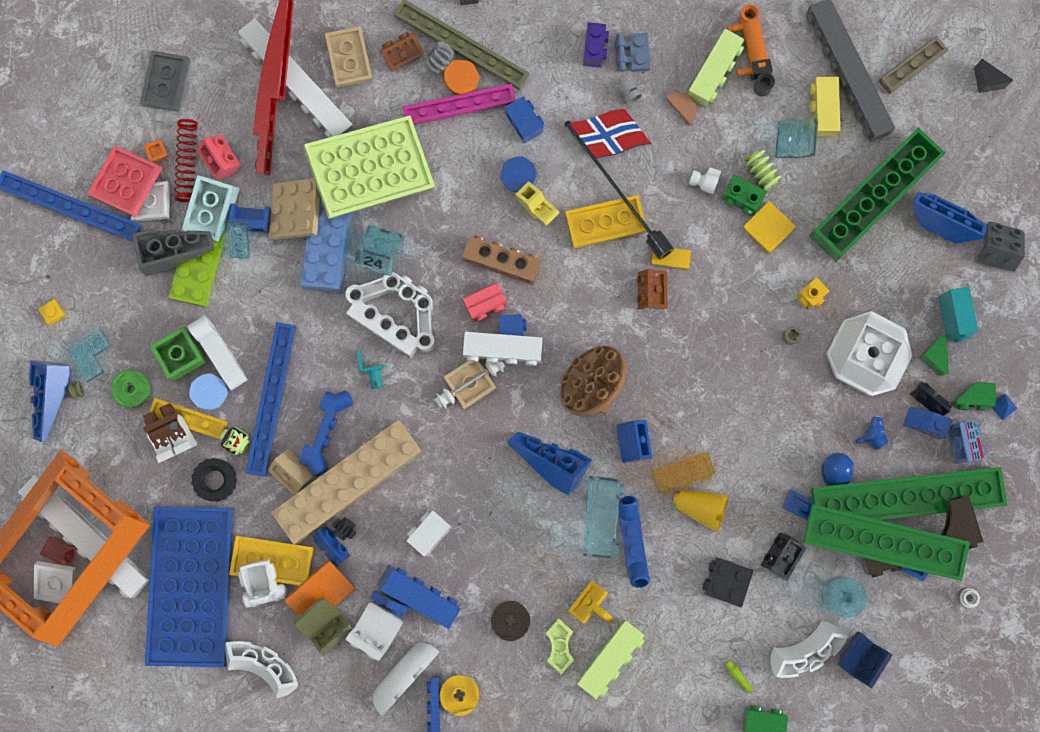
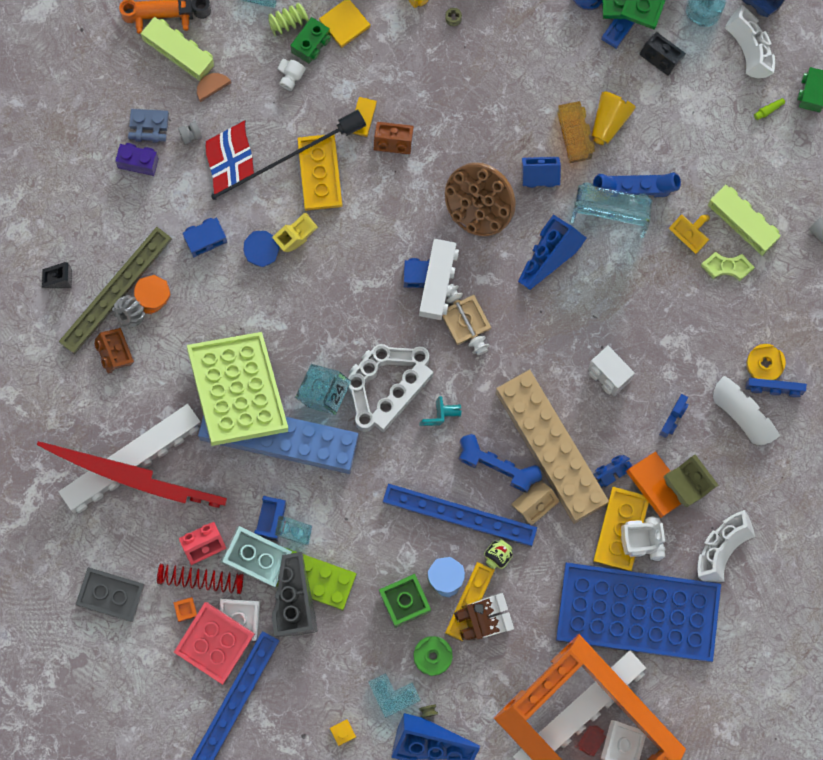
camera: 85 degrees left, 5 degrees down
(203, 469) = (532, 593): black tyre -> none
(218, 352) = (407, 562): white beam -> none
(294, 209) = (269, 469): tan plate -> none
(344, 528) = (597, 454): black gear -> none
(348, 56) = (112, 403): tan plate -> none
(374, 631) = (699, 434): white bracket -> none
(419, 597) = (668, 390): blue wedge -> none
(460, 104) = (179, 297): dark pink plate -> none
(484, 302) = (386, 295): coral brick -> none
(490, 262) = (337, 302): medium nougat brick -> none
(501, 627) = (708, 301): dark brown plate -> none
(727, 581) = (681, 106): black plate -> none

